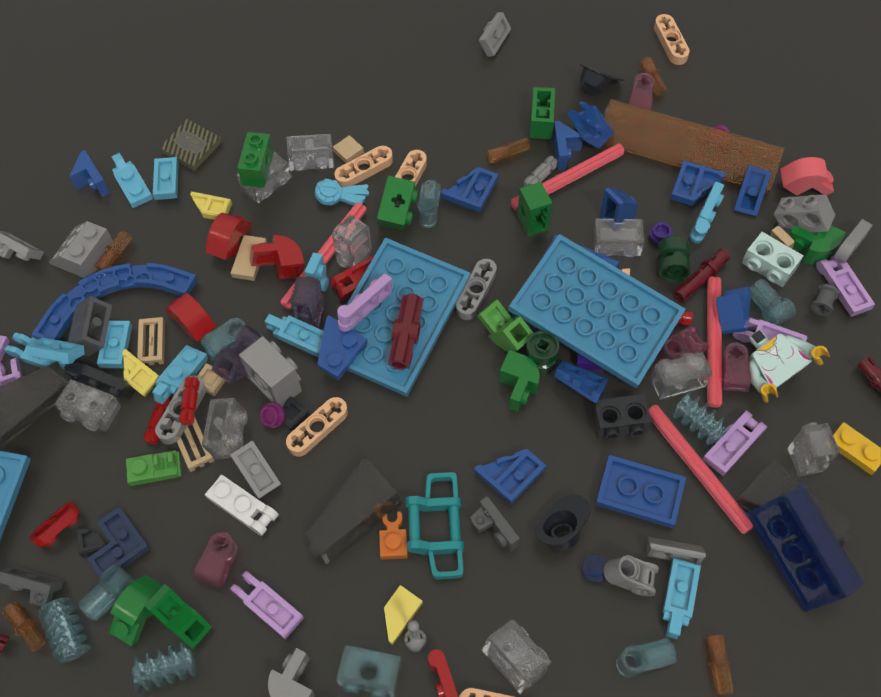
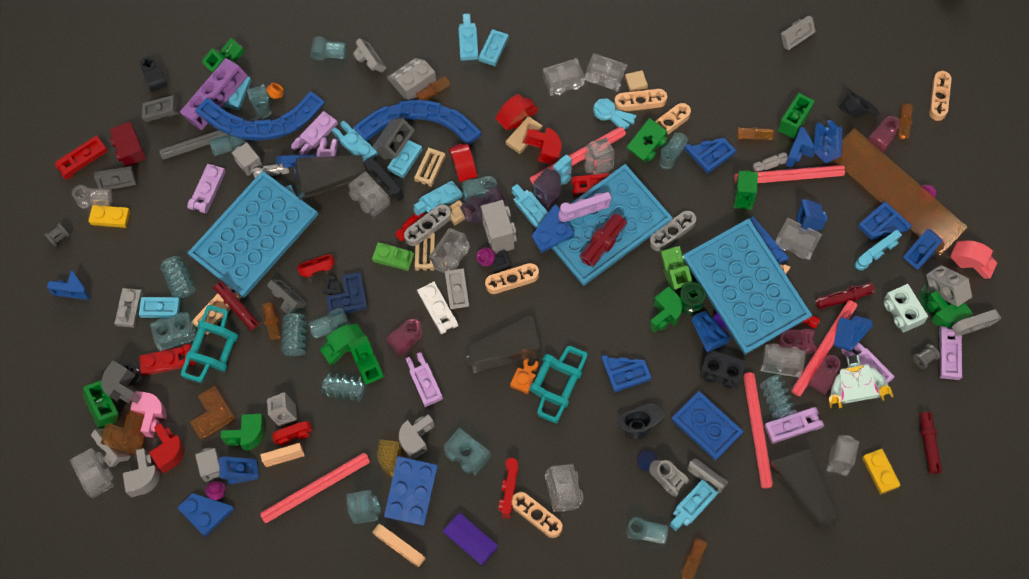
camera: 30 degrees right, 5 degrees up
(55, 350) = (364, 146): medium azure plate -> none
(86, 173) = (439, 20): blue slope -> none
(138, 374) = (411, 187): light yellow tile -> none
(189, 401) = (435, 222): red axle -> none
(190, 144) = (523, 27): tile -> none
(210, 205) = (516, 84): light yellow tile -> none
(255, 159) = (560, 64): green brick -> none
(400, 611) = (505, 425): light yellow tile -> none
(415, 644) = (505, 449): light grey hinge -> none
(489, 516) = (593, 392): dark grey hinge -> none
(659, 232) = (833, 251): dark purple plate -> none
(674, 258) = (829, 274): dark green wheel -> none
(773, 307) = (884, 345): clear light blue piece -> none
(780, 235) = (921, 296): tan tile -> none
(805, 549) = (793, 515): clear blue slope -> none

